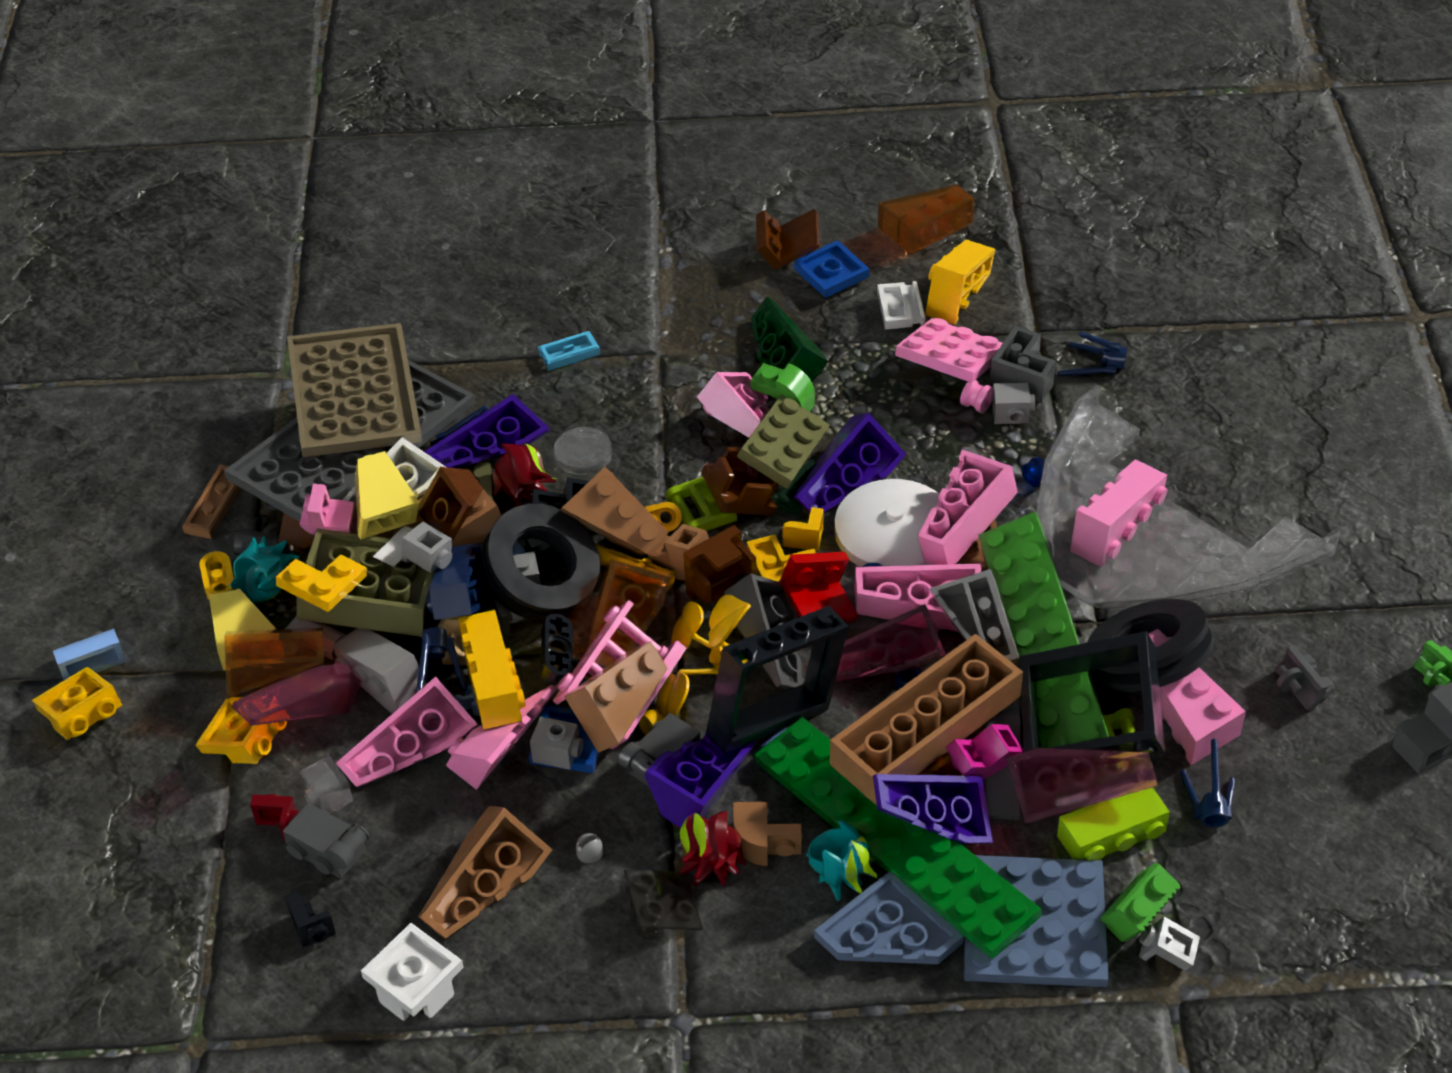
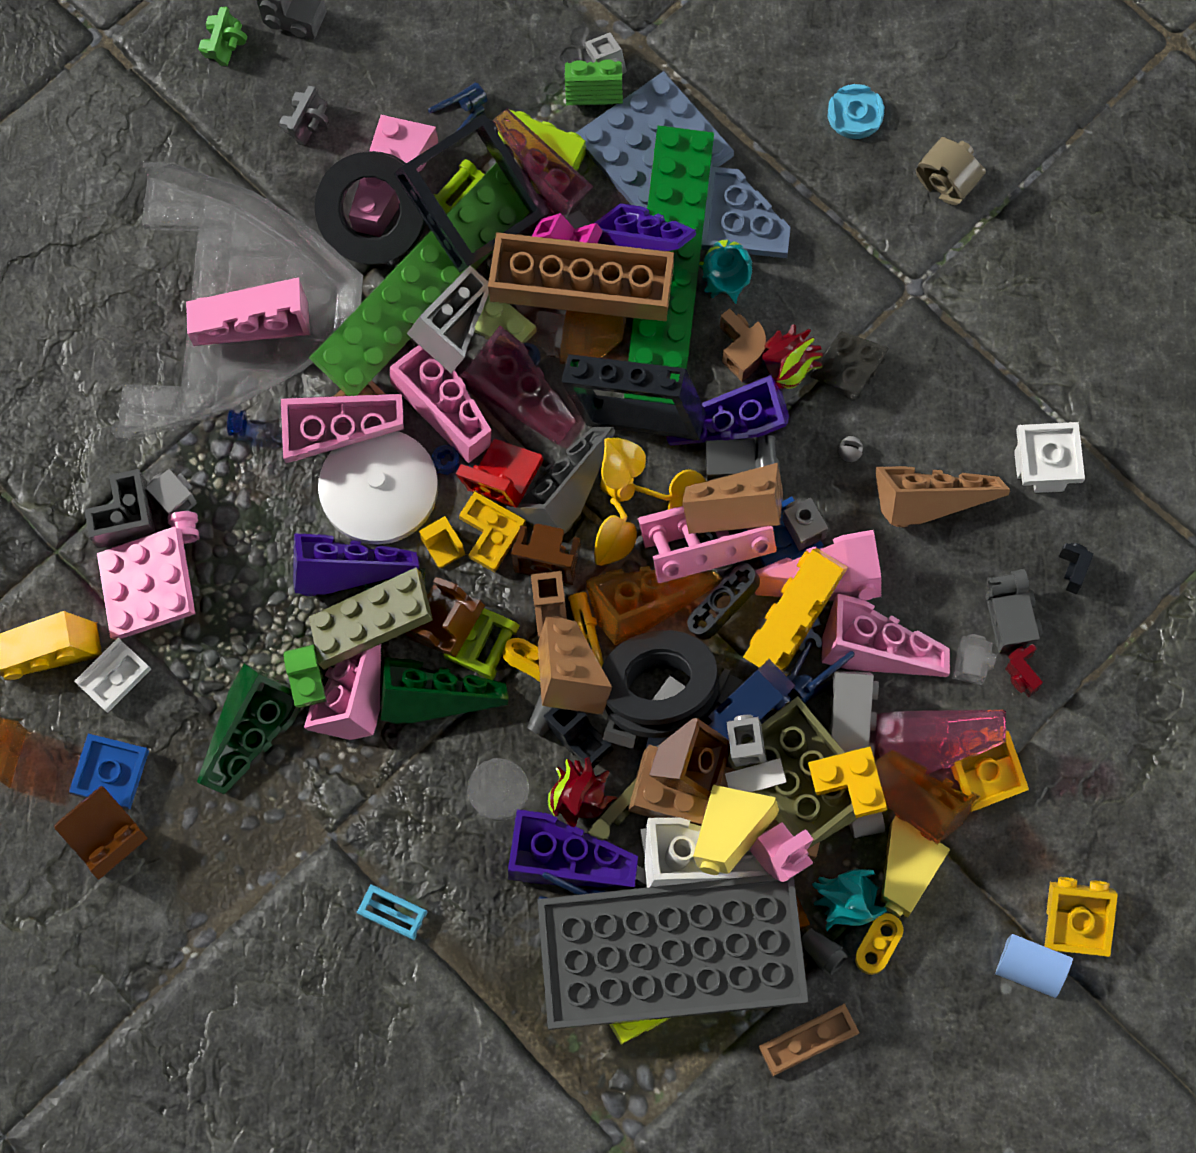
camera: 130 degrees left, 25 degrees up
(353, 390) = (629, 992): dark tan plate -> none
(684, 456) = (421, 694): none -> dark green wedge
(1112, 355) = (49, 462): dark blue plant -> none

